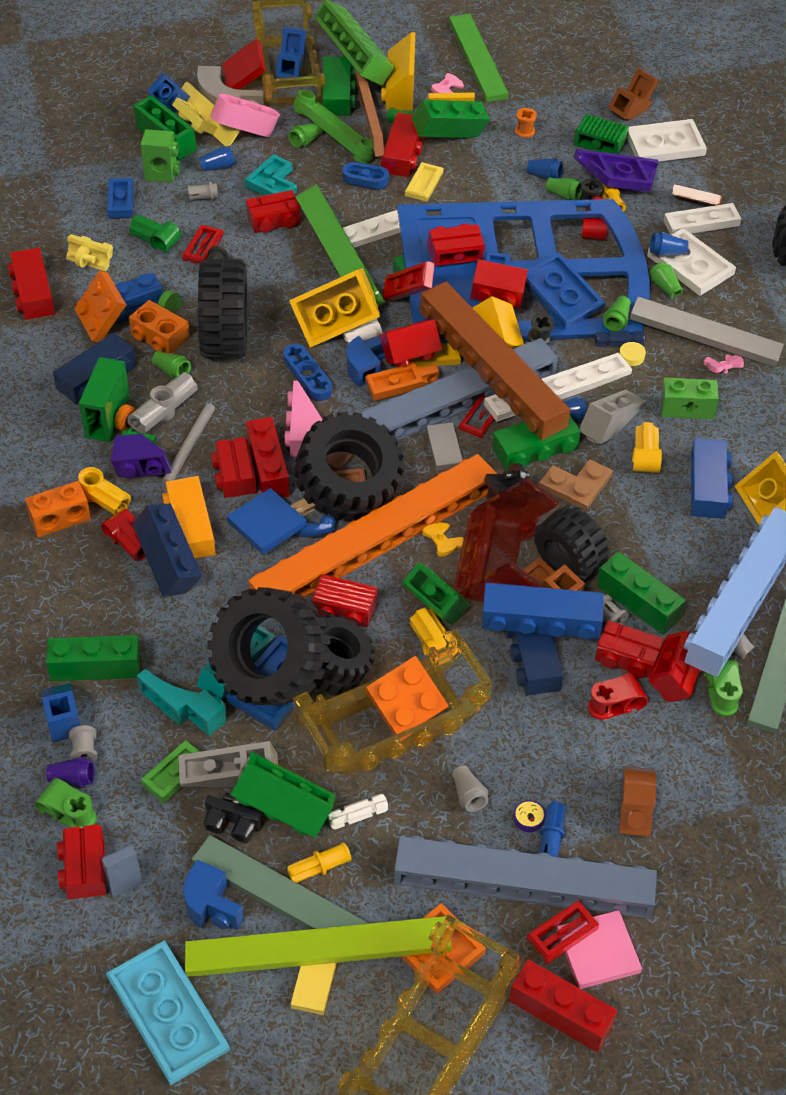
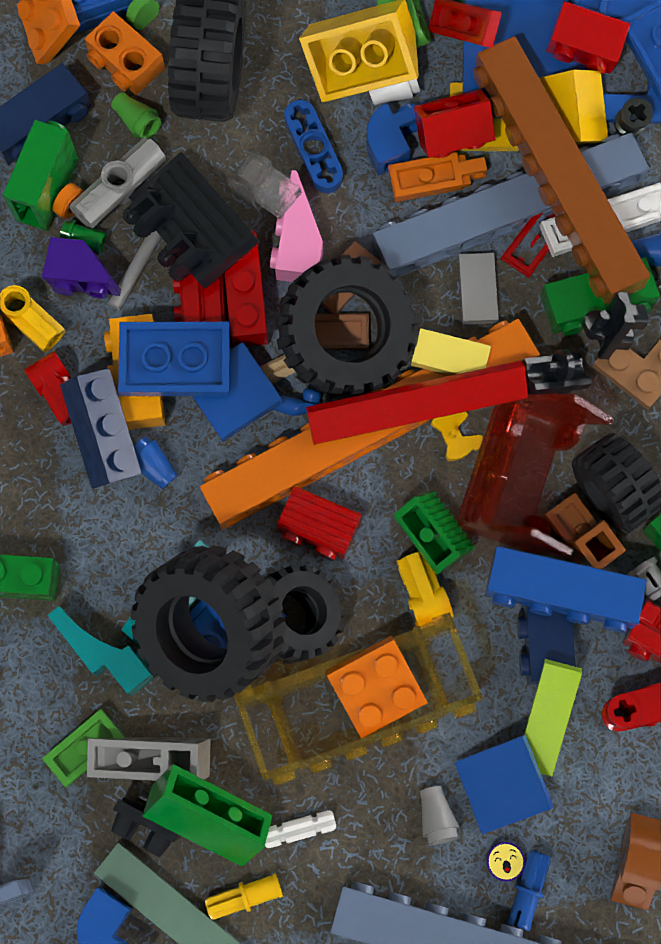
camera: 10 degrees right, 25 degrees up
(211, 576) = (154, 462): none -> blue cone
(220, 497) = (174, 359): none -> blue plate
(221, 417) = (192, 219): none -> black hinge
(271, 391) = (263, 185): none -> clear brick
(409, 506) = (417, 402): none -> red tile
(430, 478) = (448, 353): none -> light yellow tile
(518, 758) = (504, 784): none -> blue tile
(545, 705) = (551, 712): none -> lime tile
(546, 448) = (615, 325): none -> black hips

